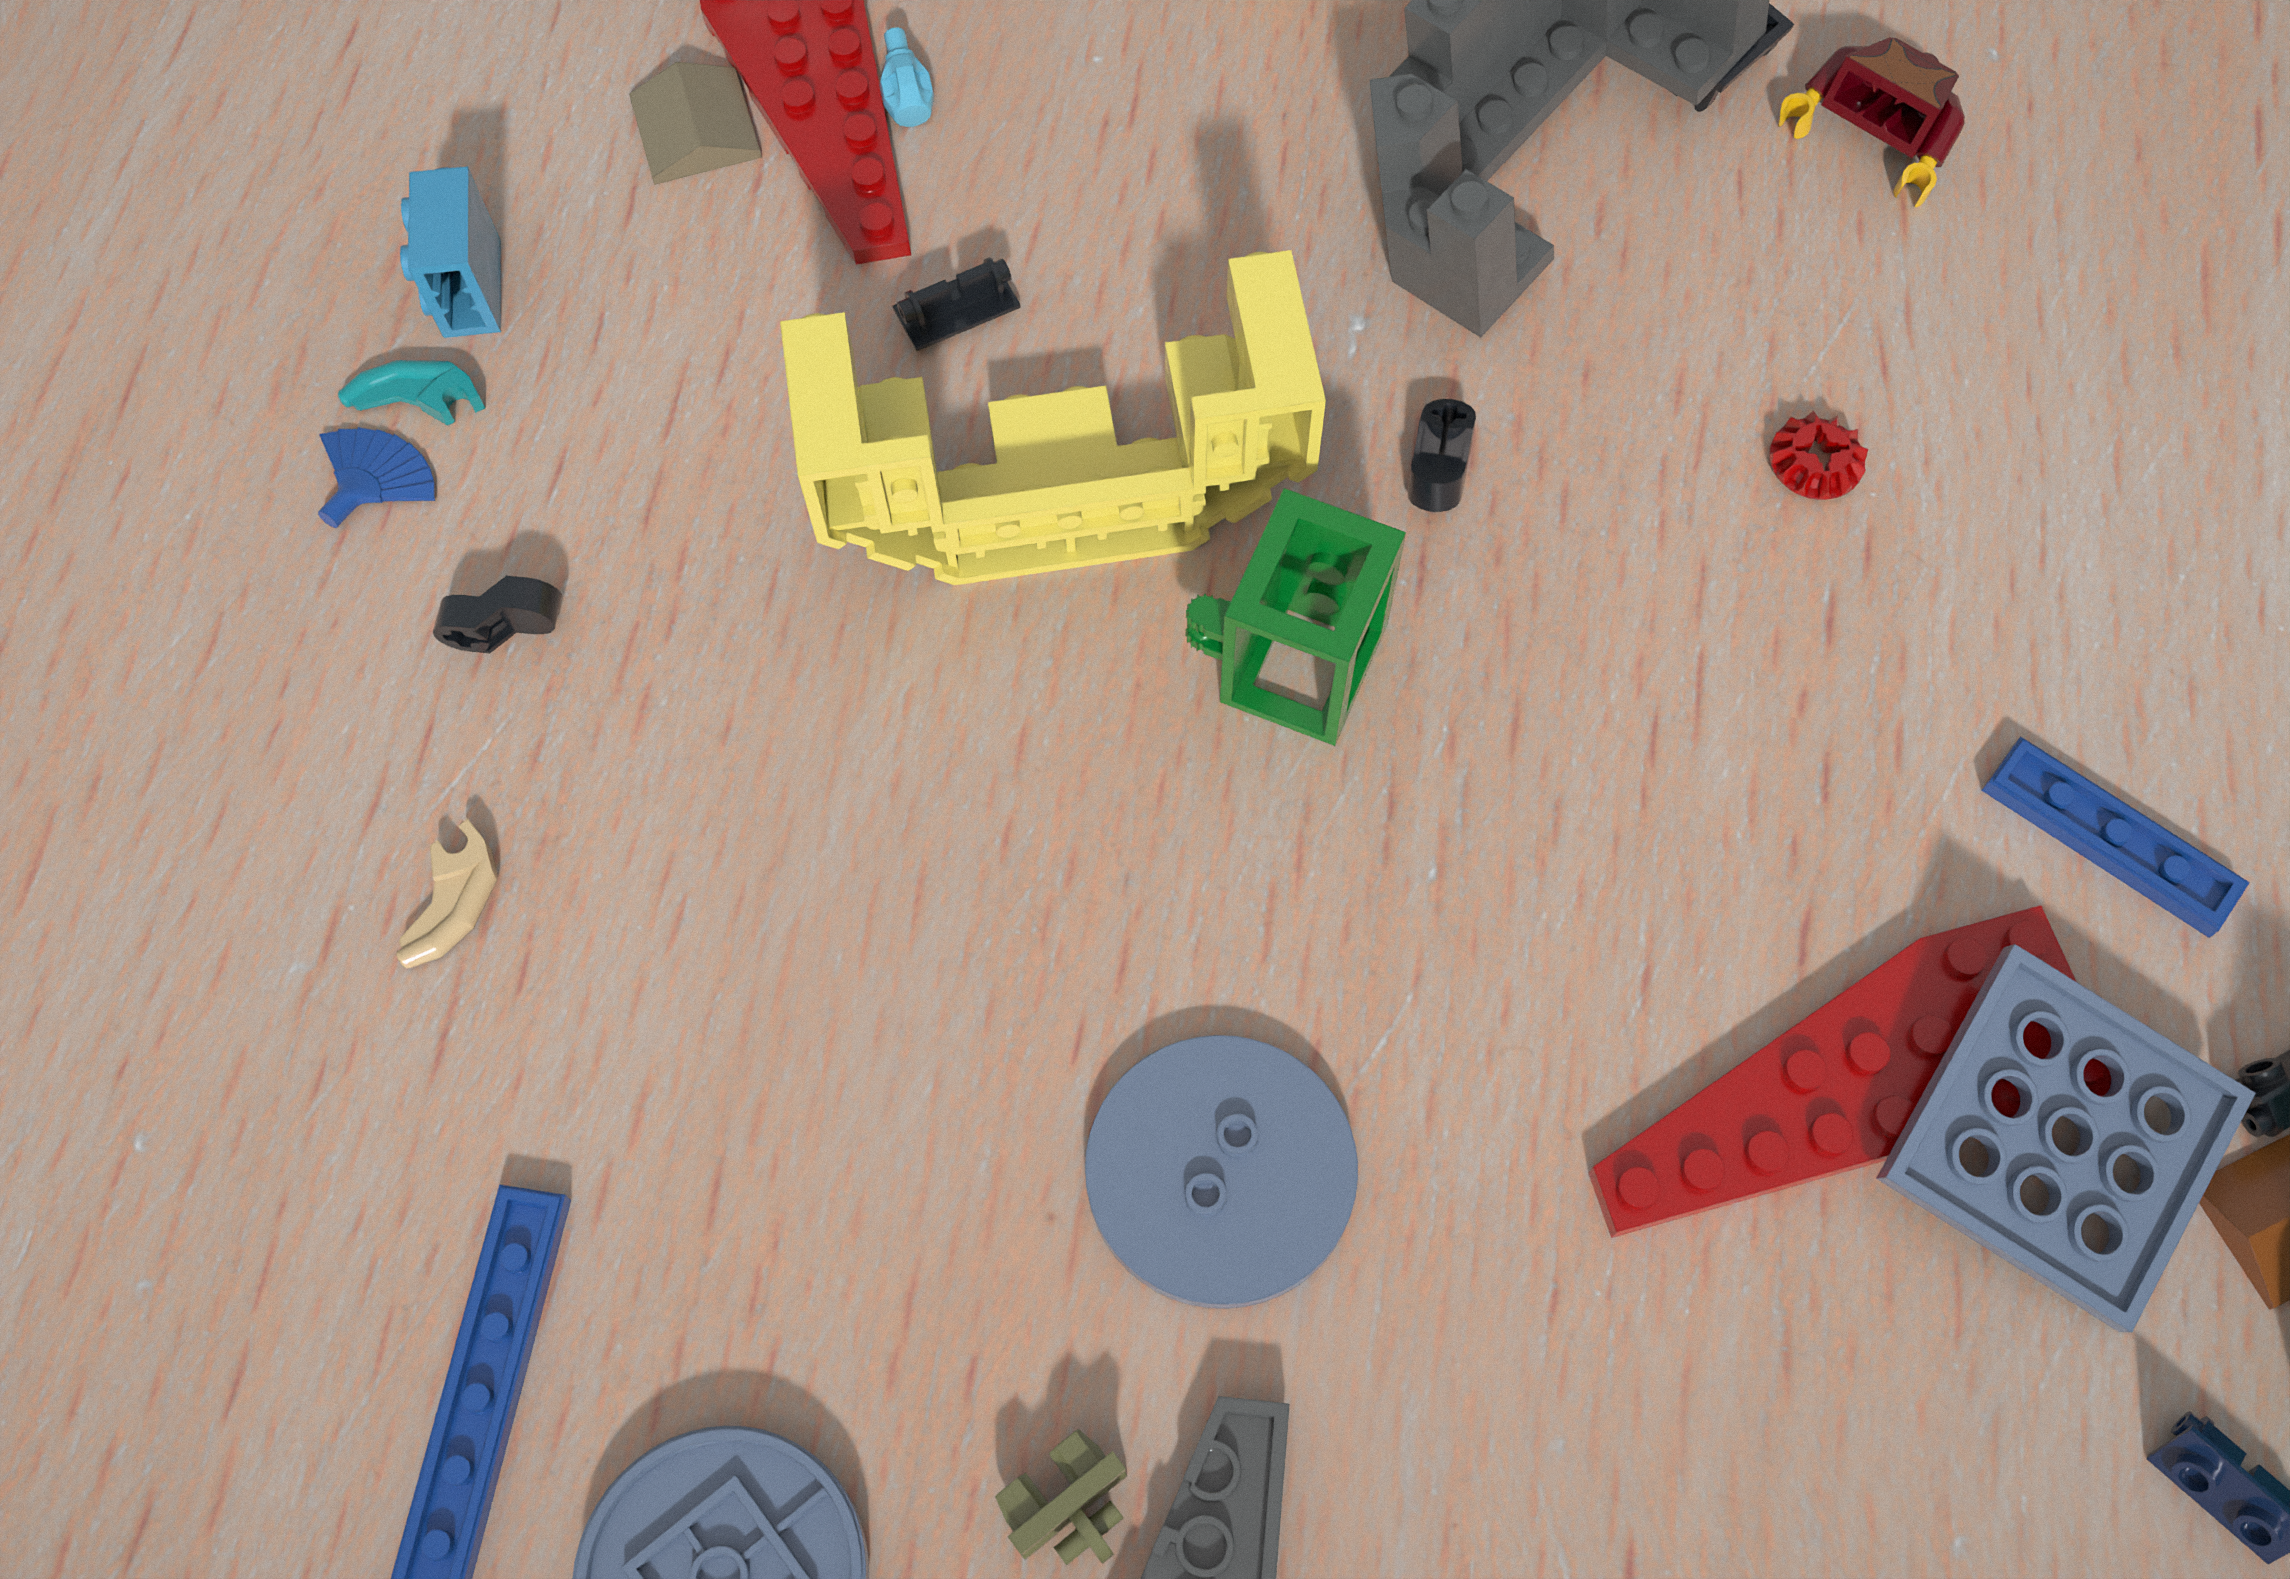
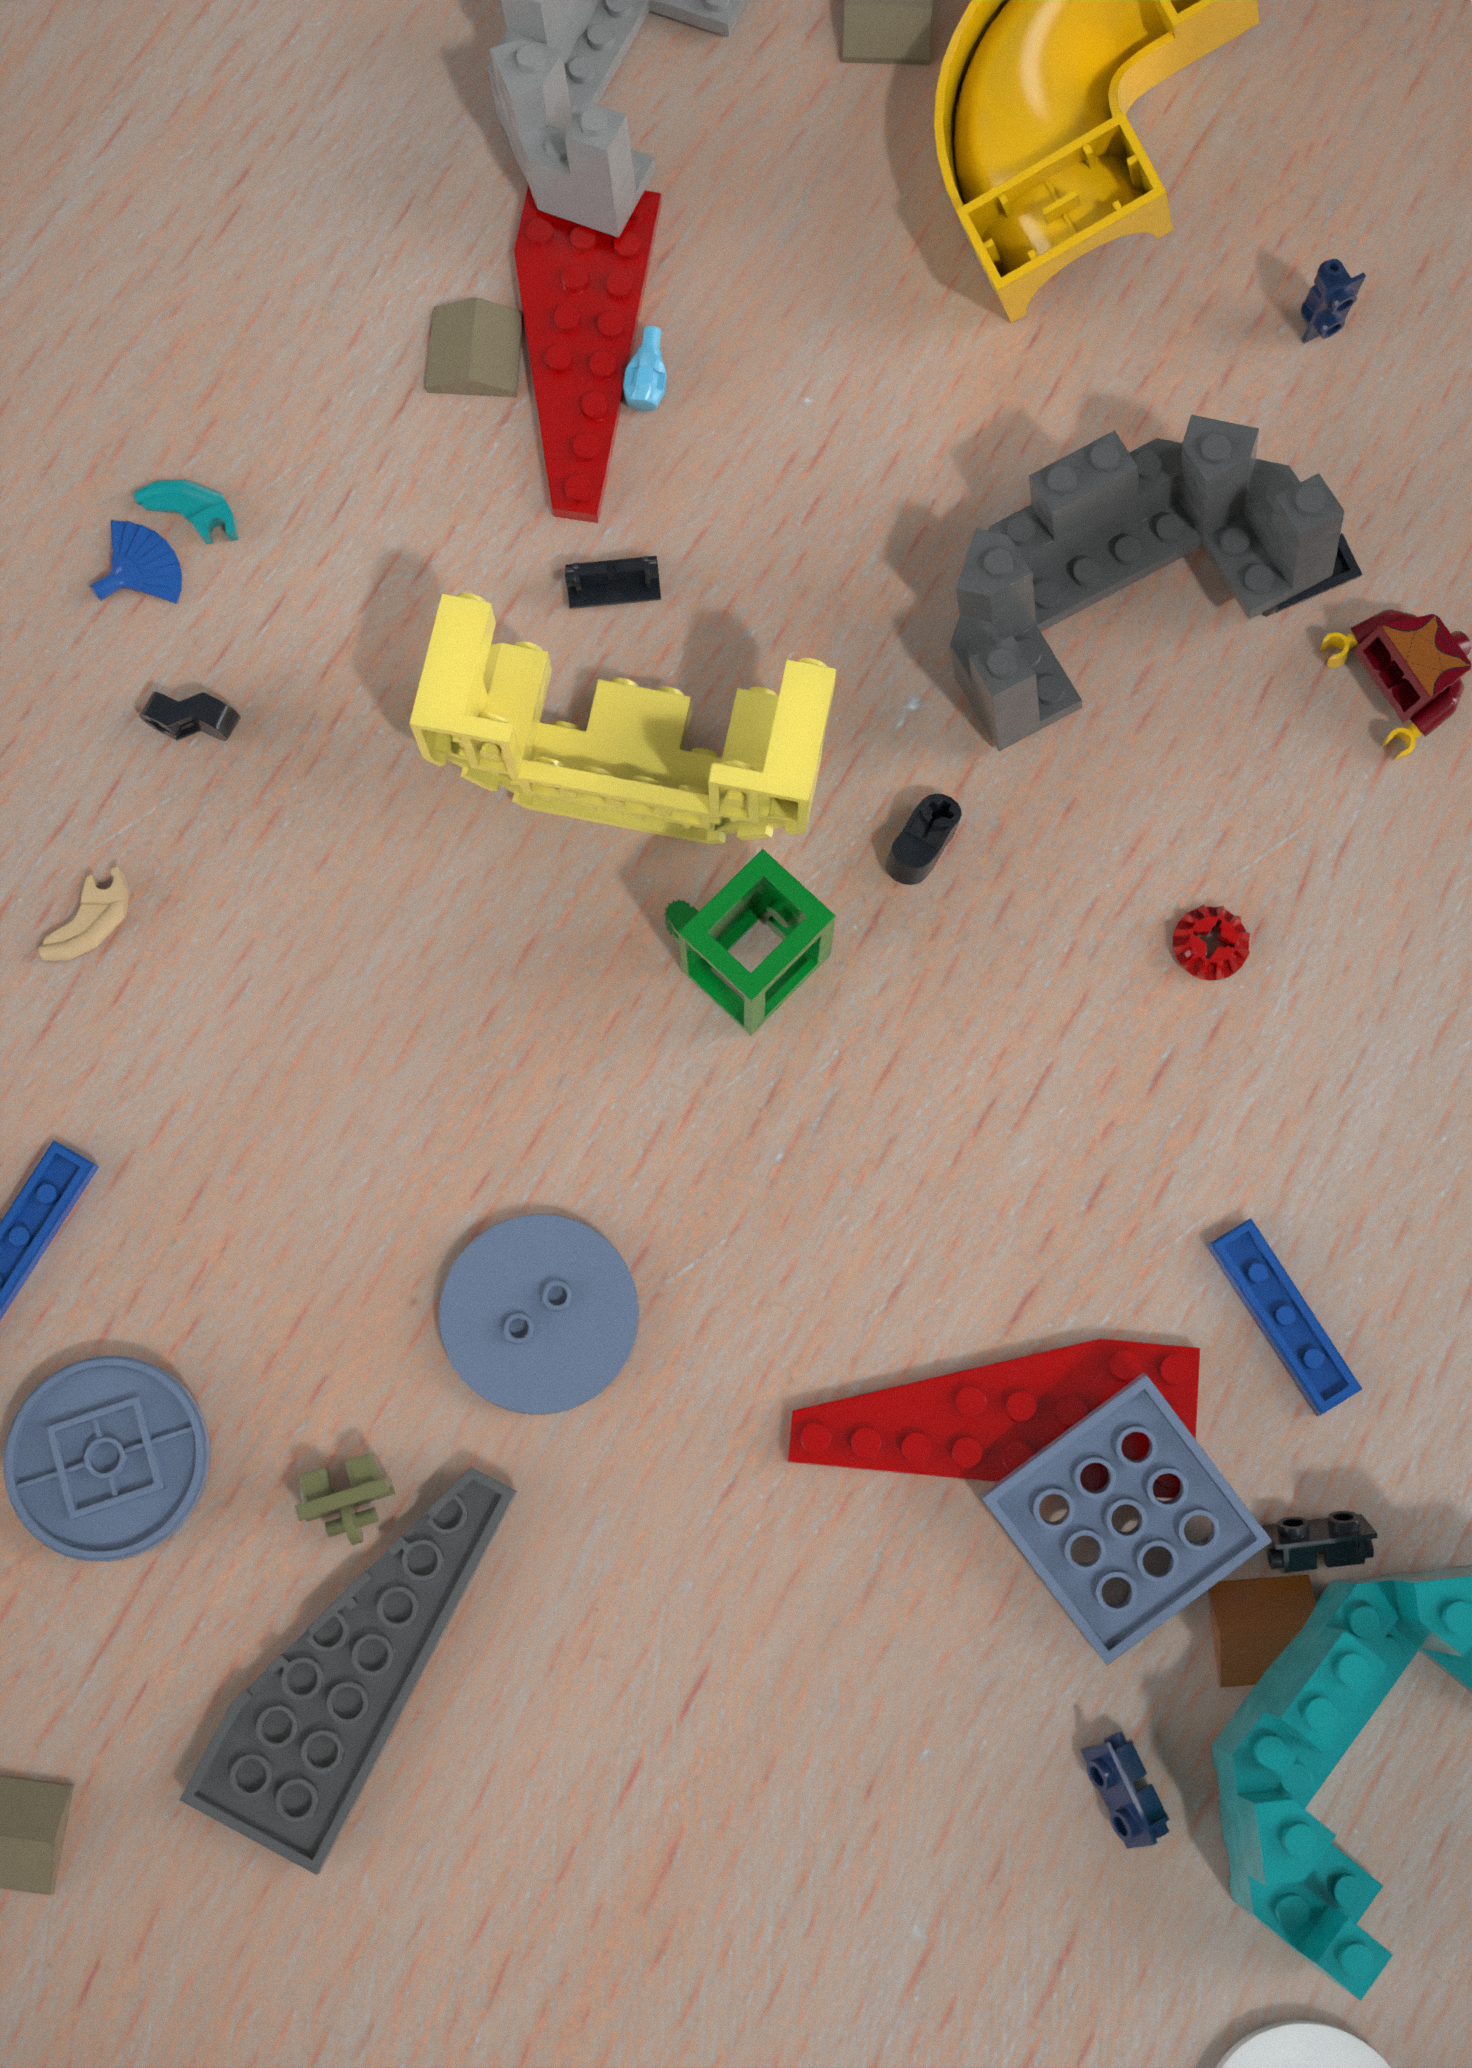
camera: 20 degrees right, 10 degrees up
(452, 252) = (251, 410): dark azure brick -> none

